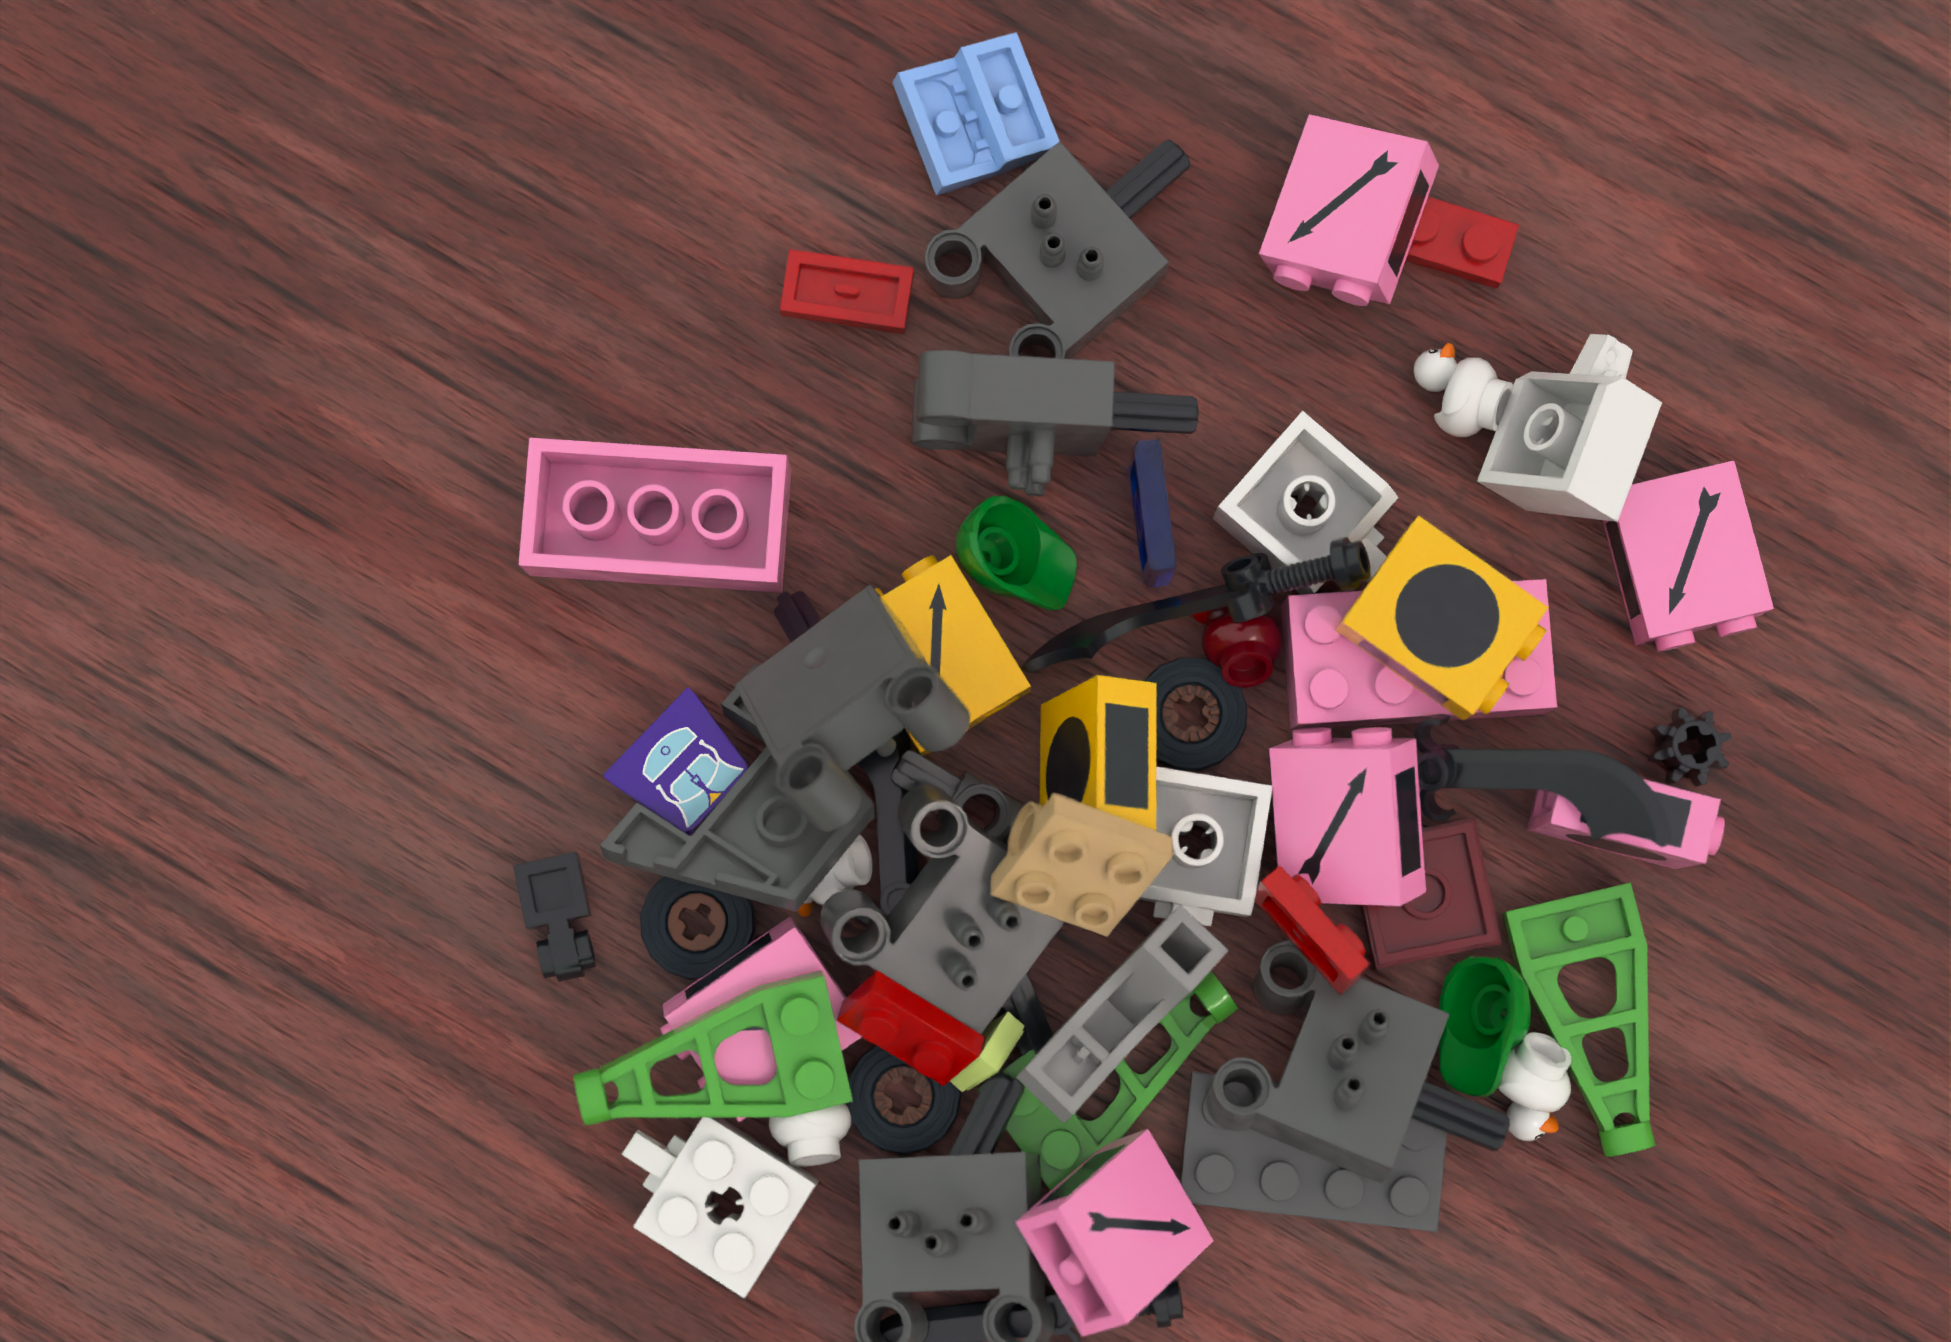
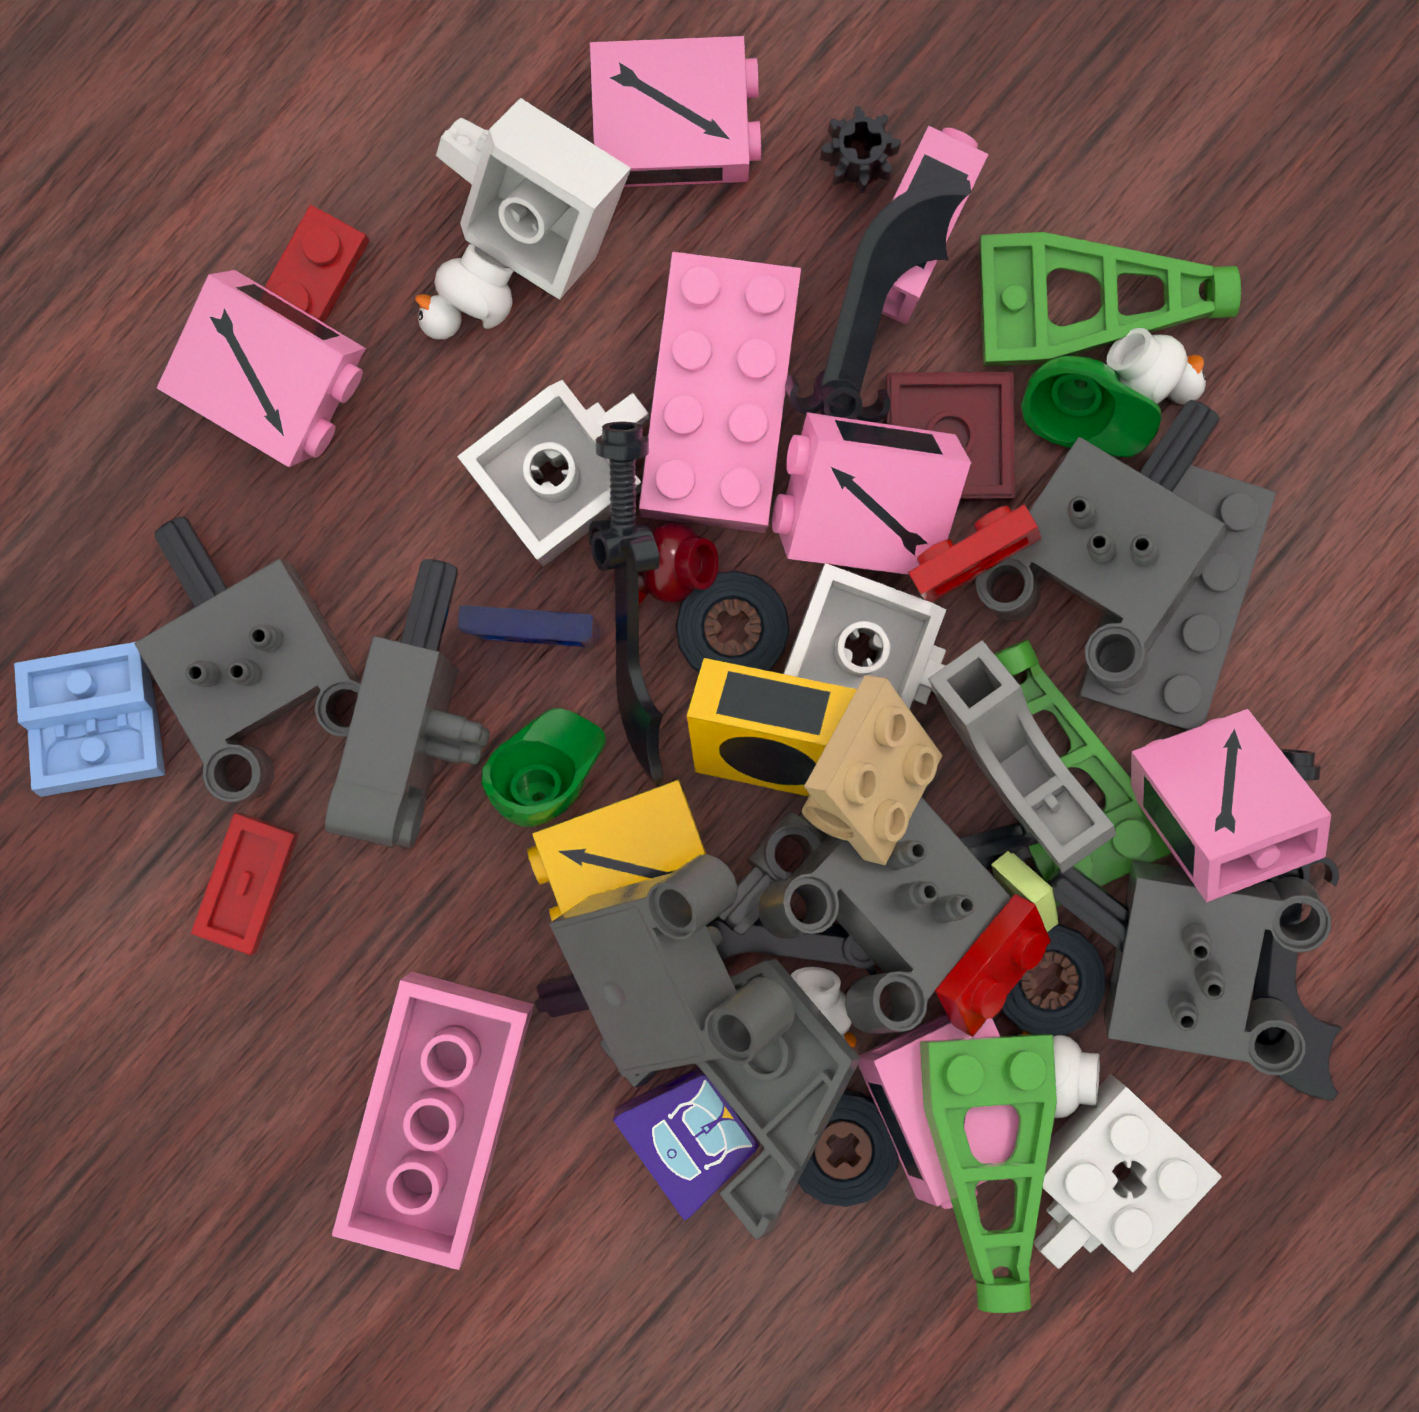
camera: 80 degrees left, 5 degrees up
(552, 896) = (789, 1285): black plate -> none
(1444, 620) = (697, 359): yellow brick -> none

